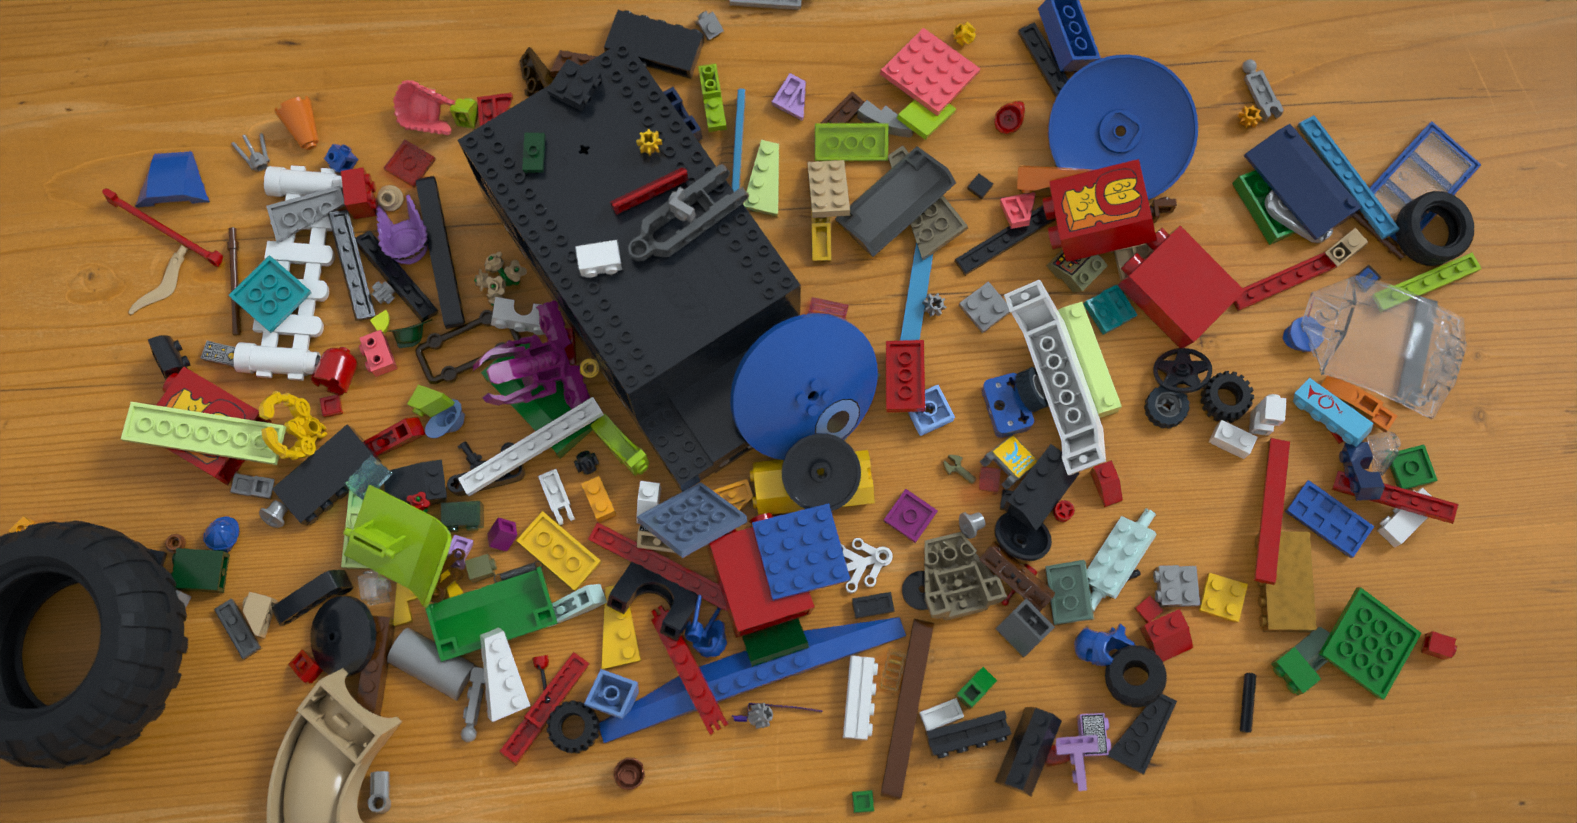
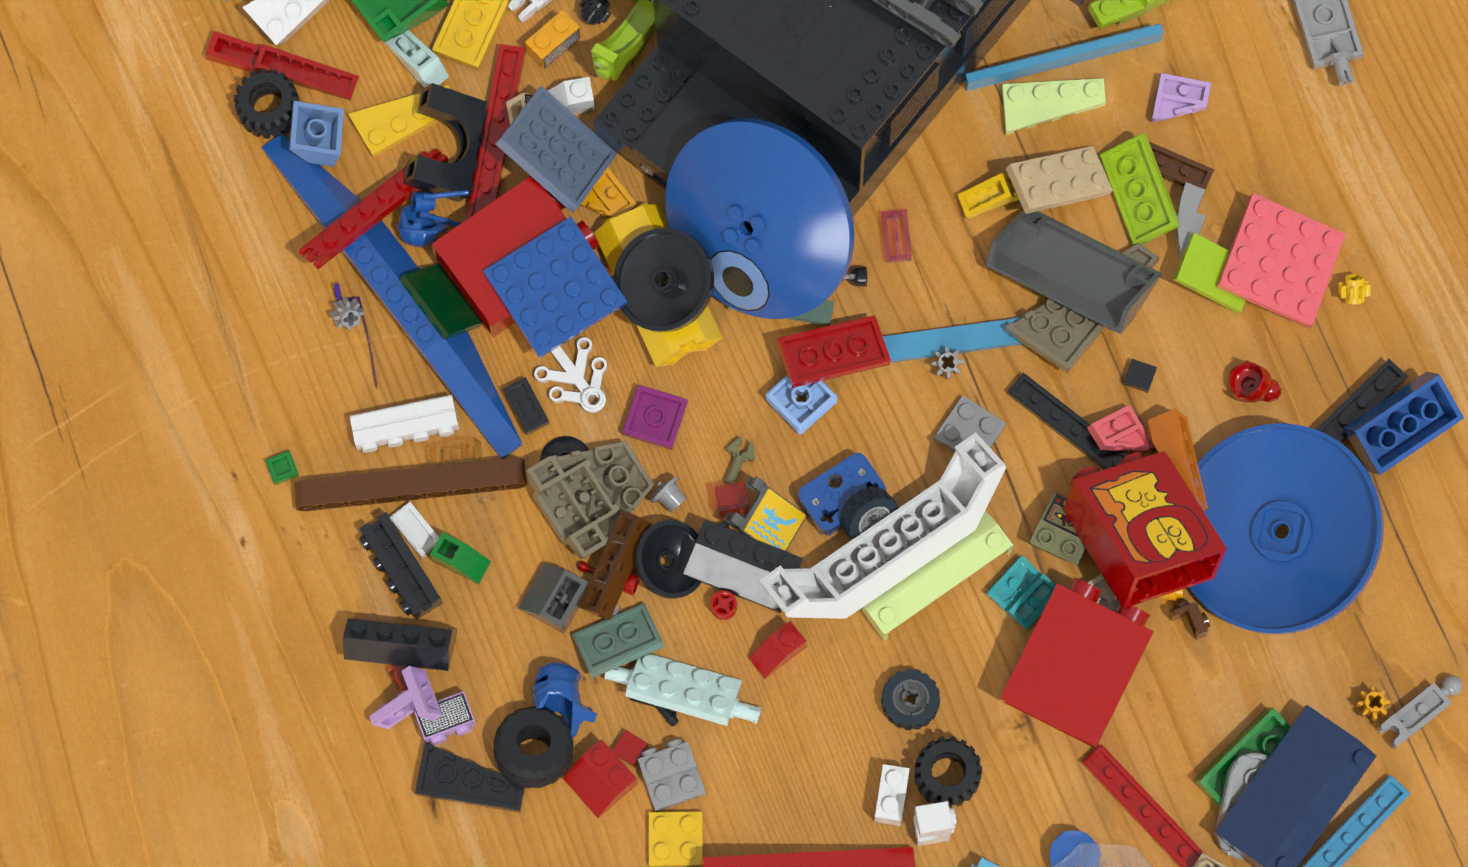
camera: 75 degrees right, 0 degrees up
(541, 664) = (332, 43): hinge -> none
(629, 773) = (232, 185): copper hair -> none
(1182, 370) = (965, 704): black wheel -> none

